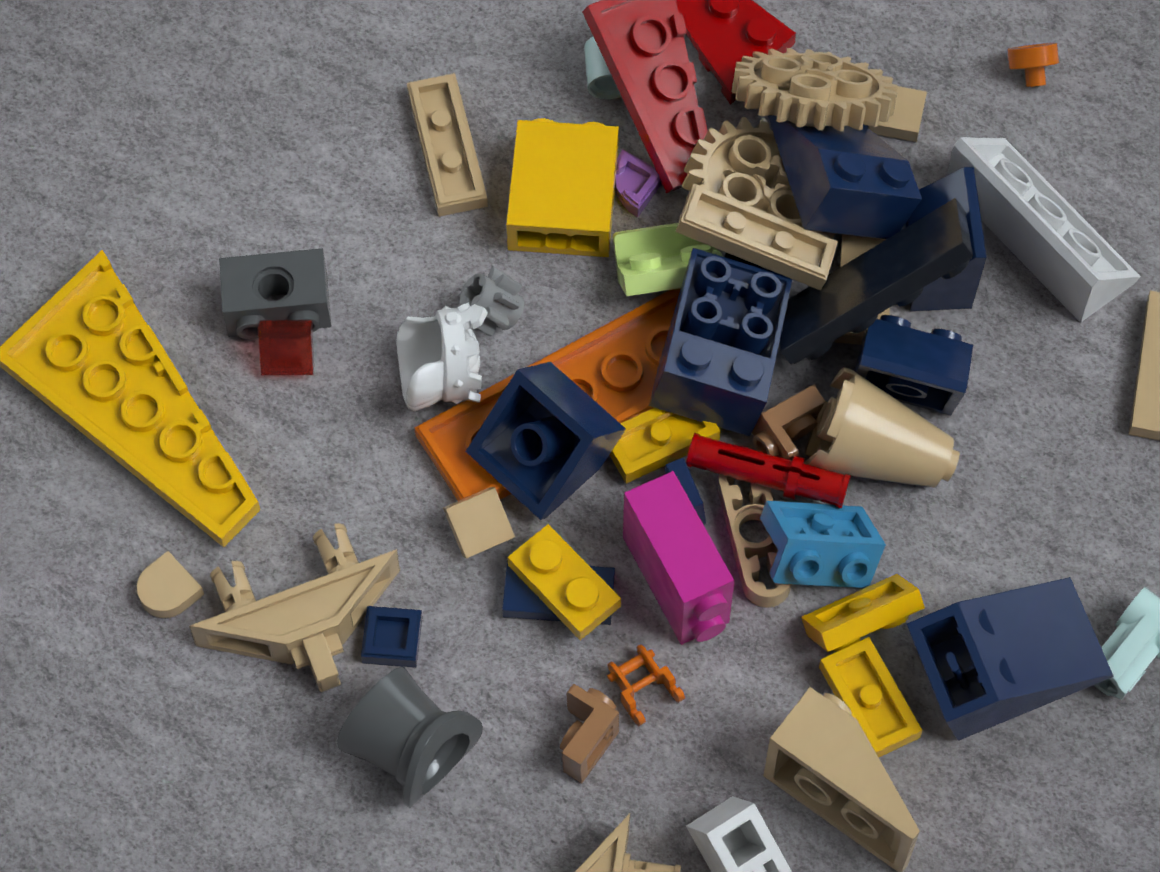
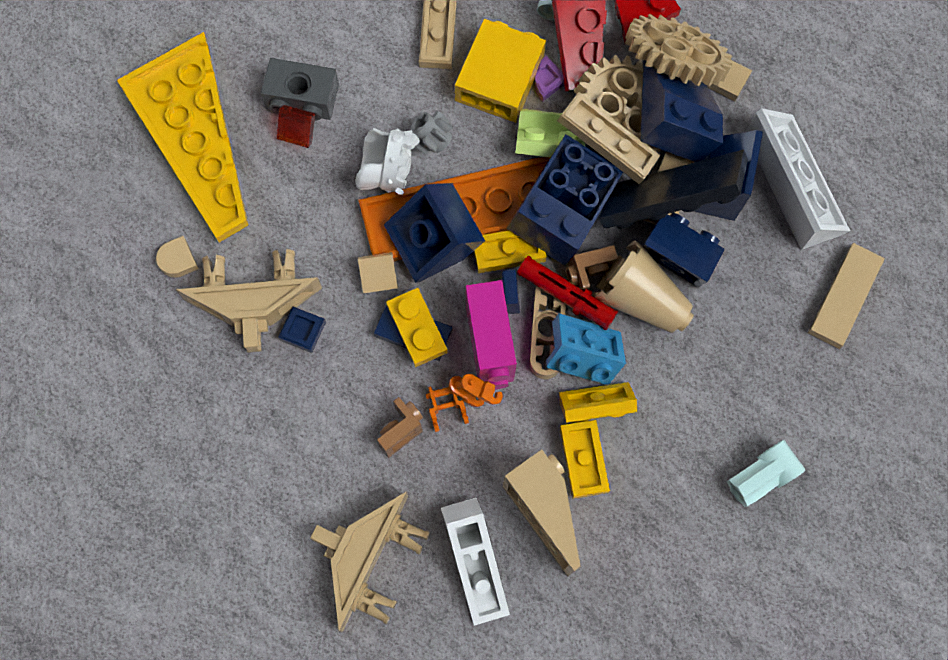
camera: 15 degrees right, 10 degrees up
(408, 734) = (285, 398): dark grey hat -> none
(674, 638) = (471, 387): none -> orange piece
(1008, 654) = (680, 459): dark blue slope -> none
(1033, 60) = (828, 68): orange tile -> none

